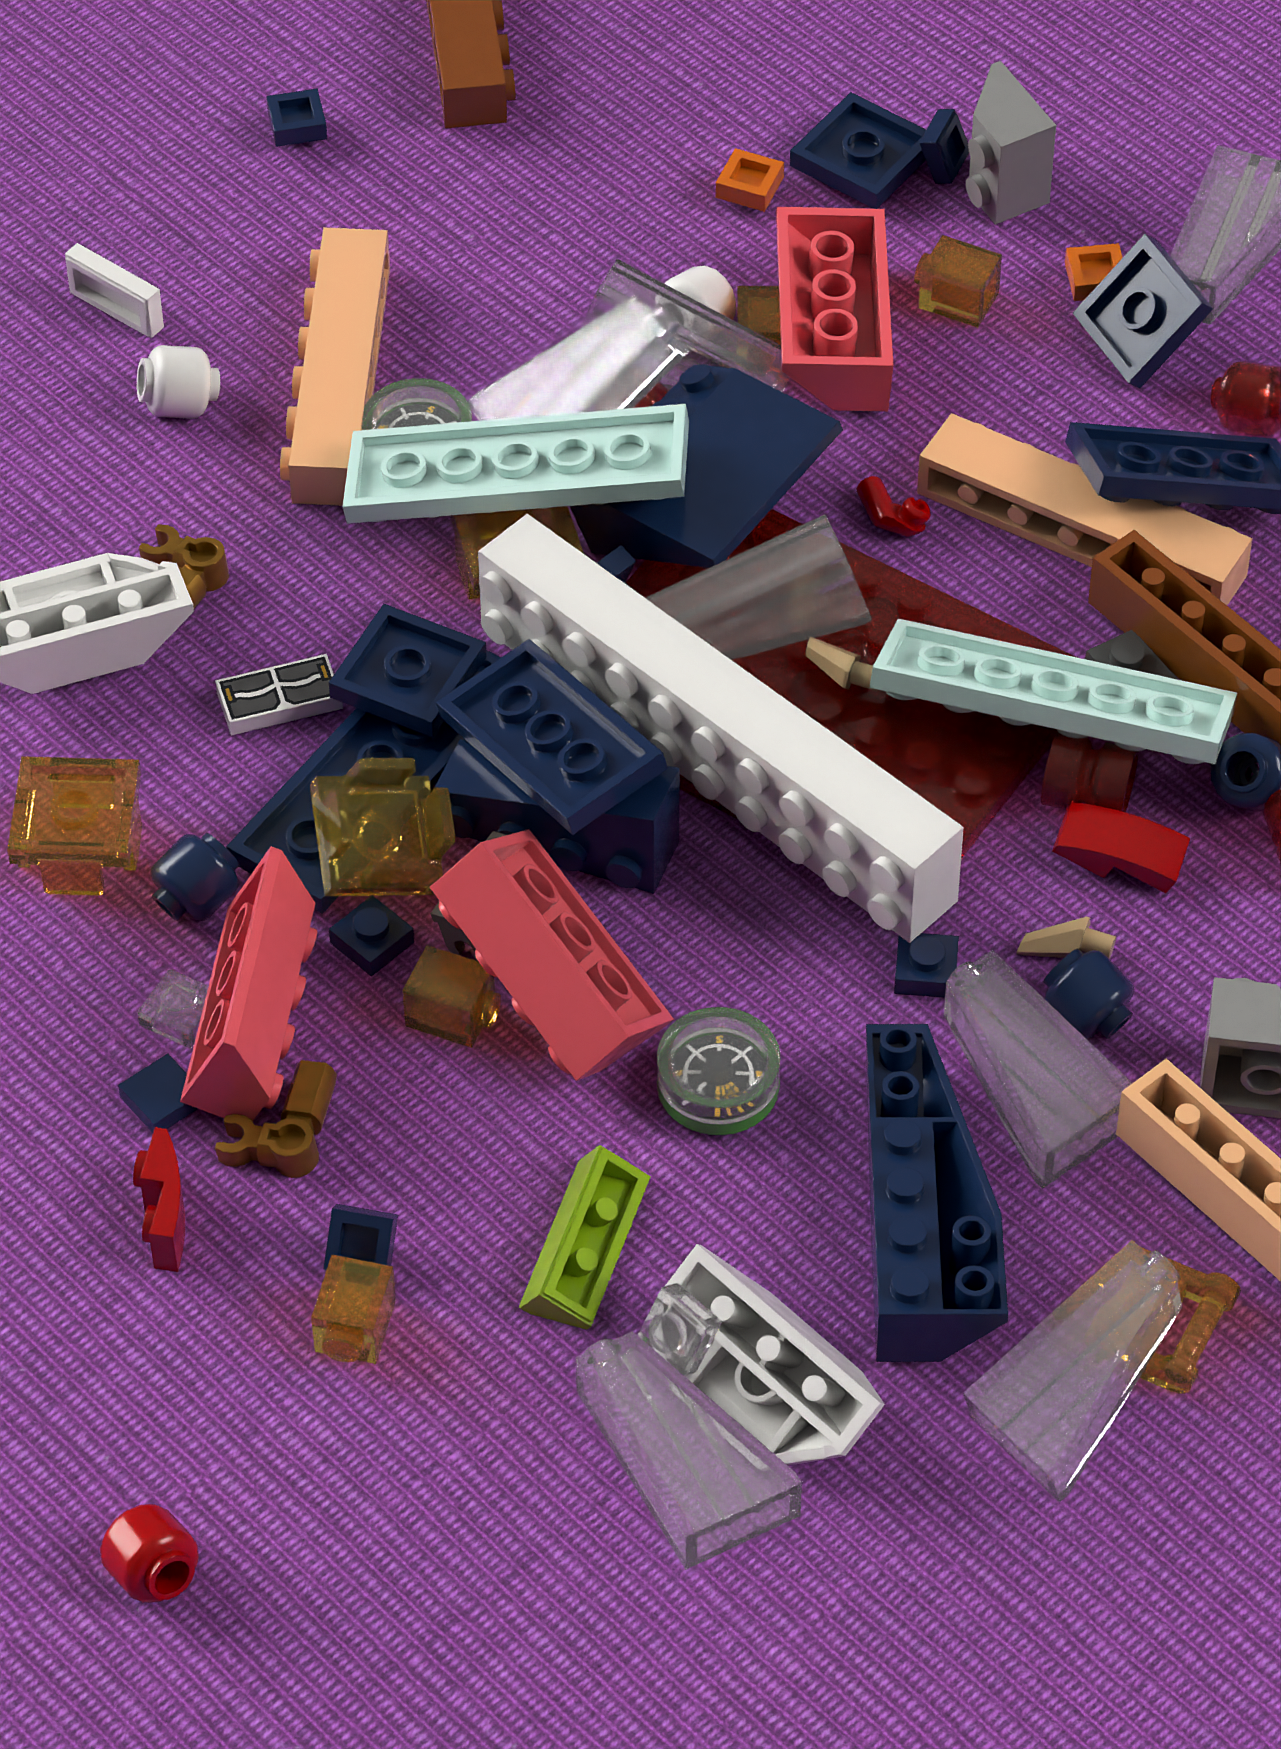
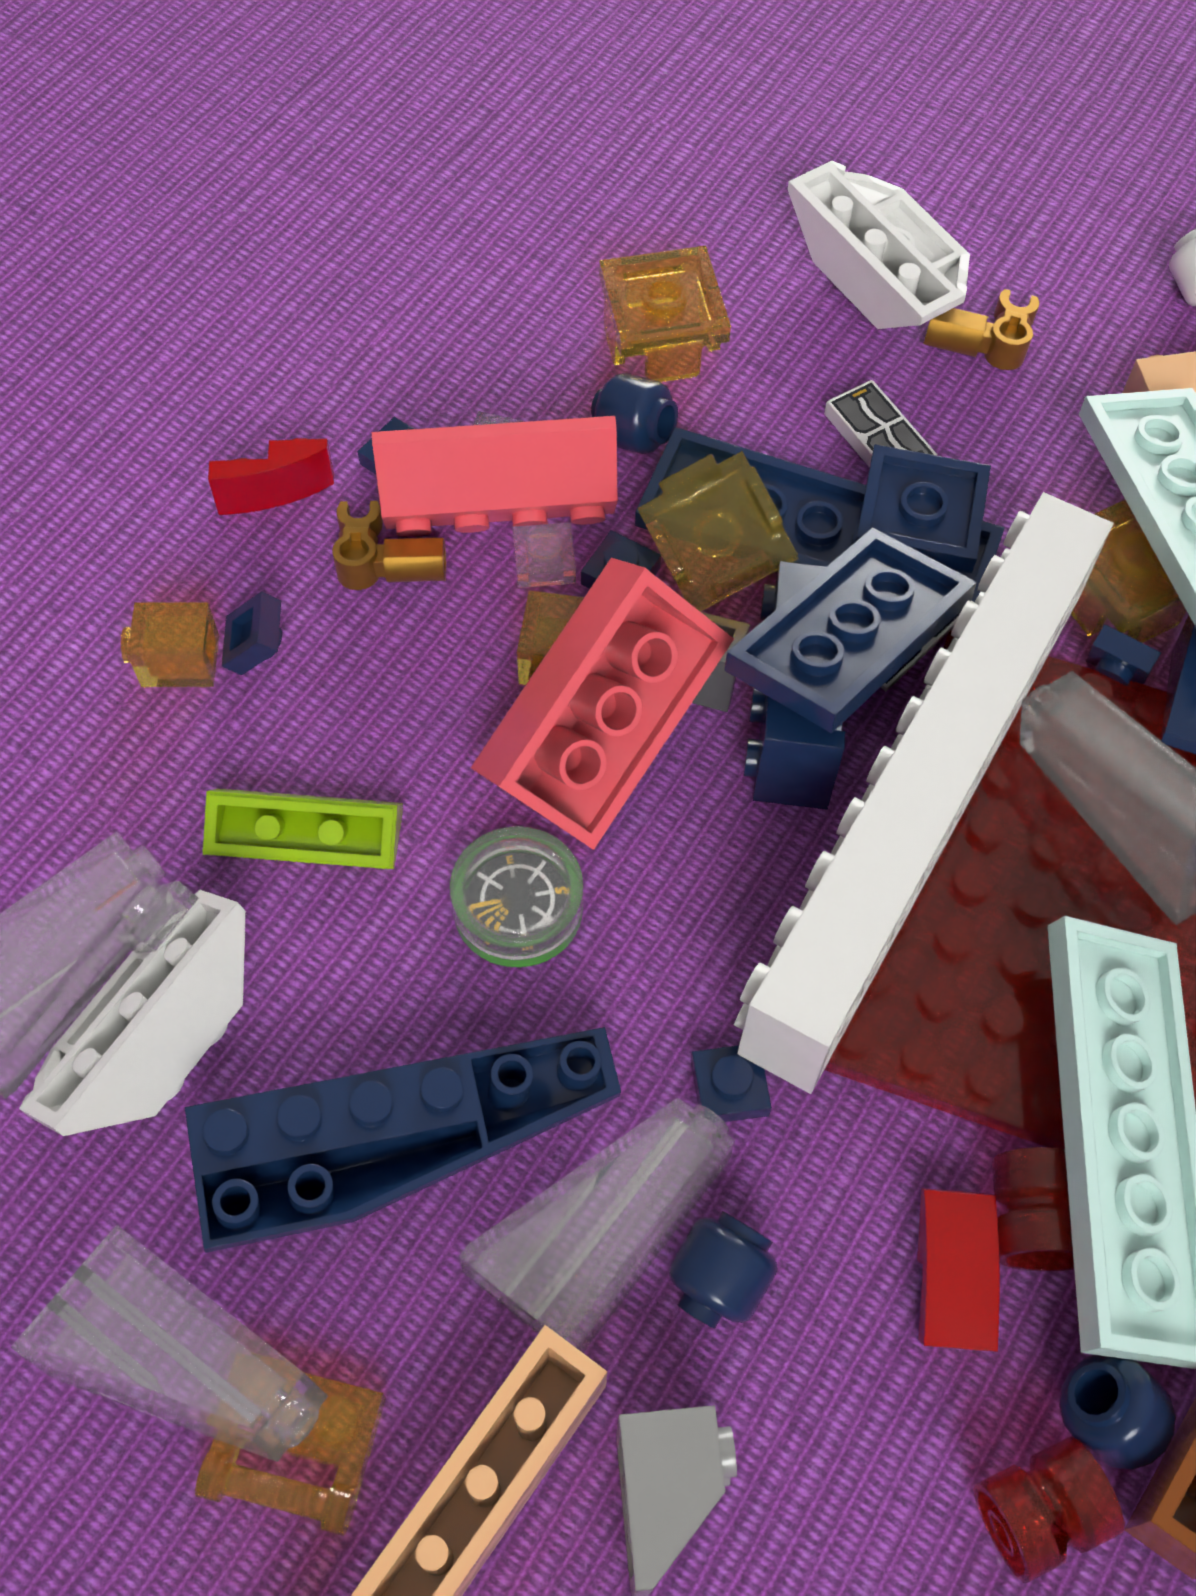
camera: 75 degrees right, 10 degrees up
(333, 994) = (544, 555): none -> clear plate
(839, 664) = (1096, 894): tan bar -> none
(1064, 938) = (807, 1235): tan bar -> none

